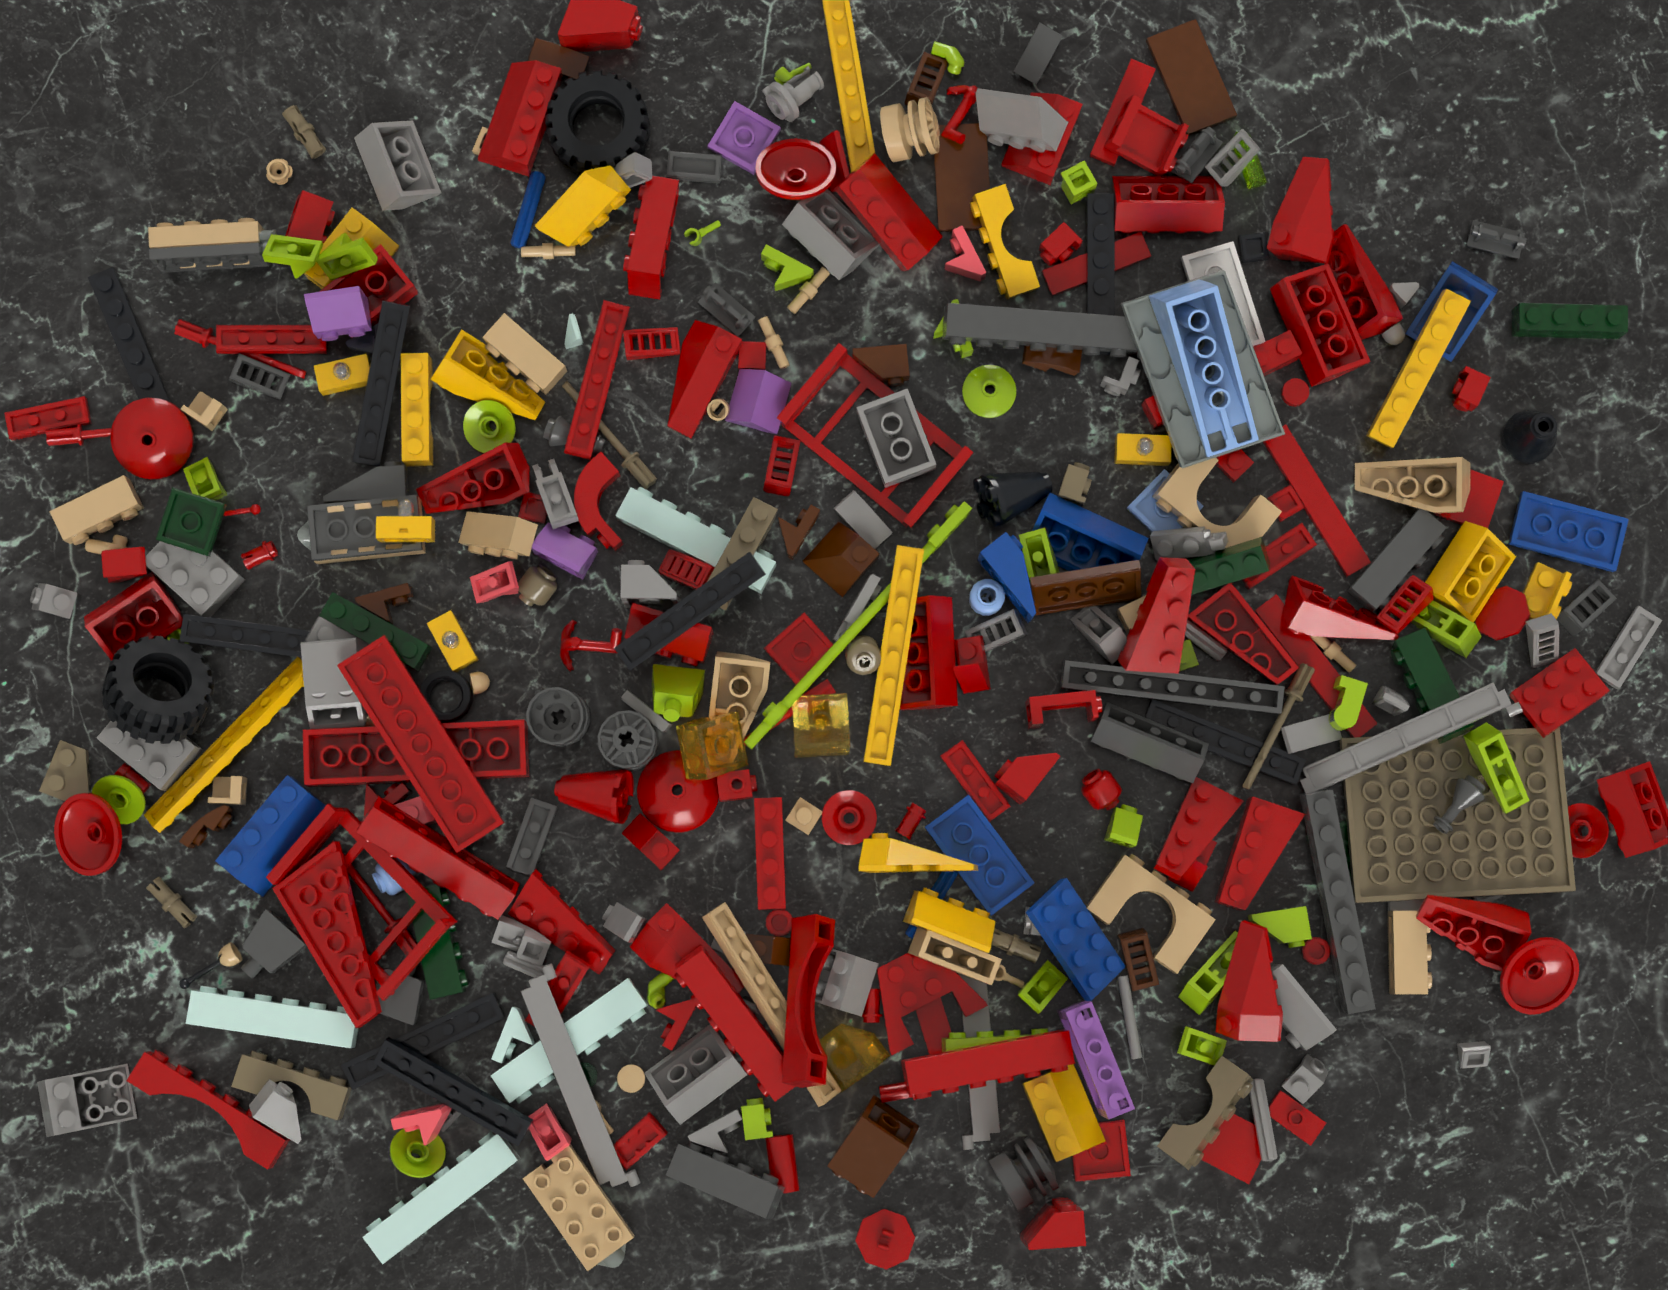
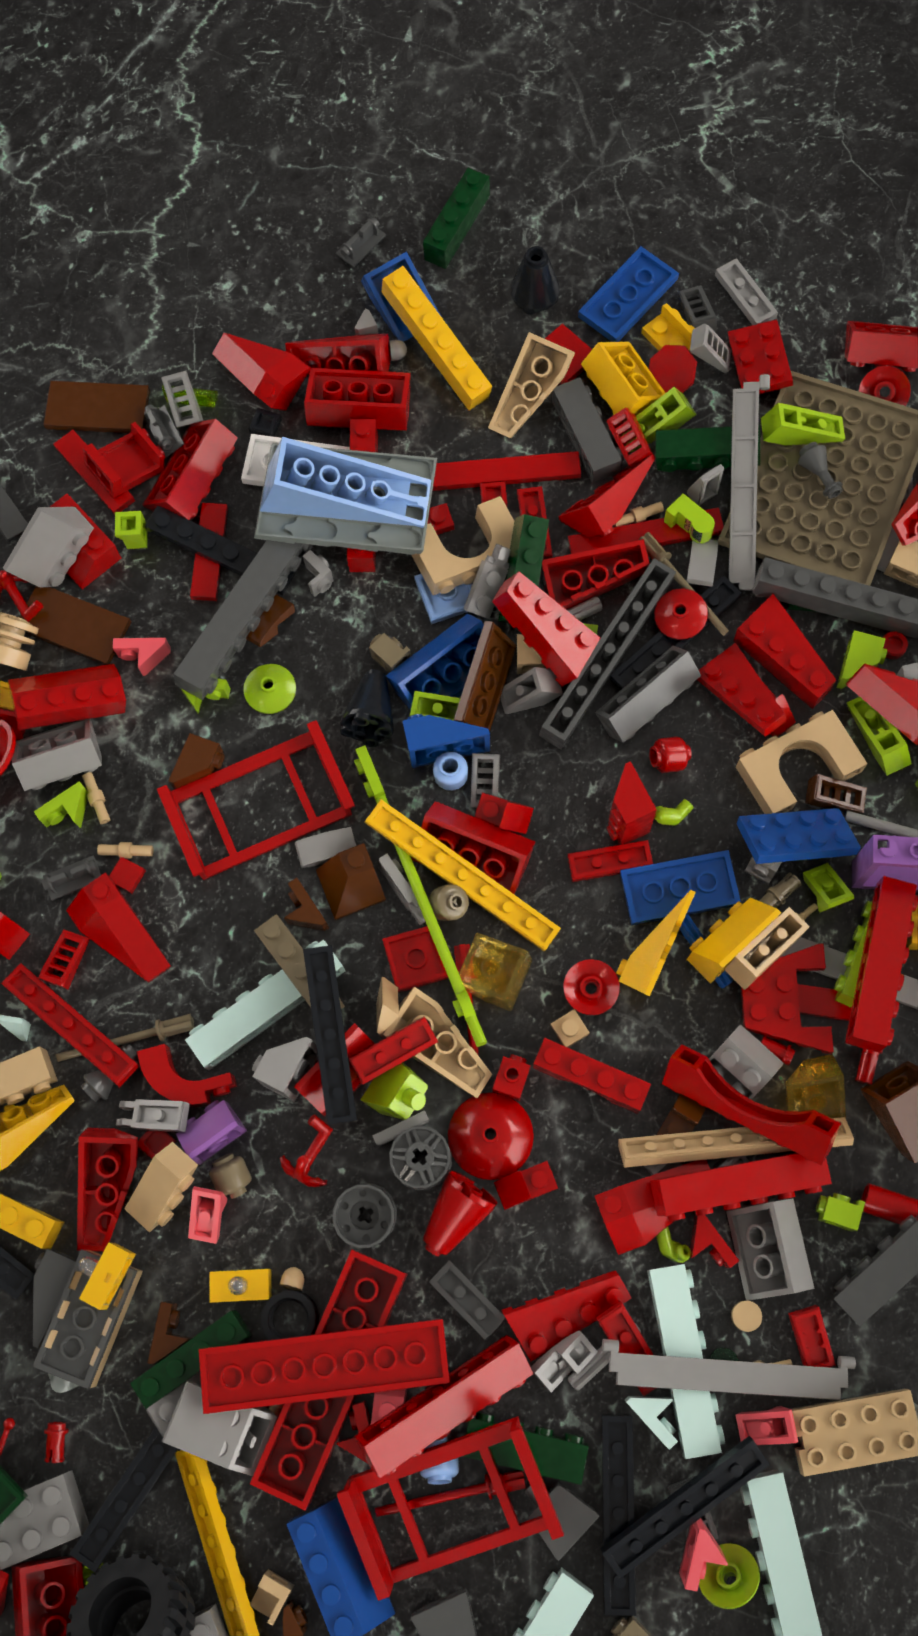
camera: 55 degrees left, 10 degrees down
(327, 919) = (453, 1555): red wing -> none
(477, 426) = (47, 1158): lime dish -> none
(623, 922) = (593, 1247): light grey slope -> none
(684, 569) = (283, 1030): red slope -> none
(706, 671) = (393, 1050): none -> red tile
(710, 1135) = (833, 1264): light grey slope -> none
(712, 746) = (465, 1080): clear yellow slope -> none
(713, 406) = (151, 928): tan hinge -> none
(744, 646) = (387, 1005): none -> tan slope
(758, 400) = (168, 888): medium lavender slope -> none
(778, 482) = (254, 904): red slope -> none
(779, 922) = (659, 1099): red tile -> none
(896, 438) = (268, 780): light grey brick -> none
(911, 820) = (620, 933): red pin -> none
(1015, 275) = (179, 618): yellow arch -> none
(1037, 704) = (574, 775): red panel -> none
(1044, 818) = (673, 816): none -> lime arm
(1059, 244) = (176, 570): red brick -> none
(1124, 826) = (714, 749): lime slope -> none
(1142, 449) = (388, 585): yellow piece -> none
(1248, 750) = (681, 625): none -> red dish
(1295, 392) = (404, 444): red tile -> none
(1469, 389) = (472, 313): red brick -> none

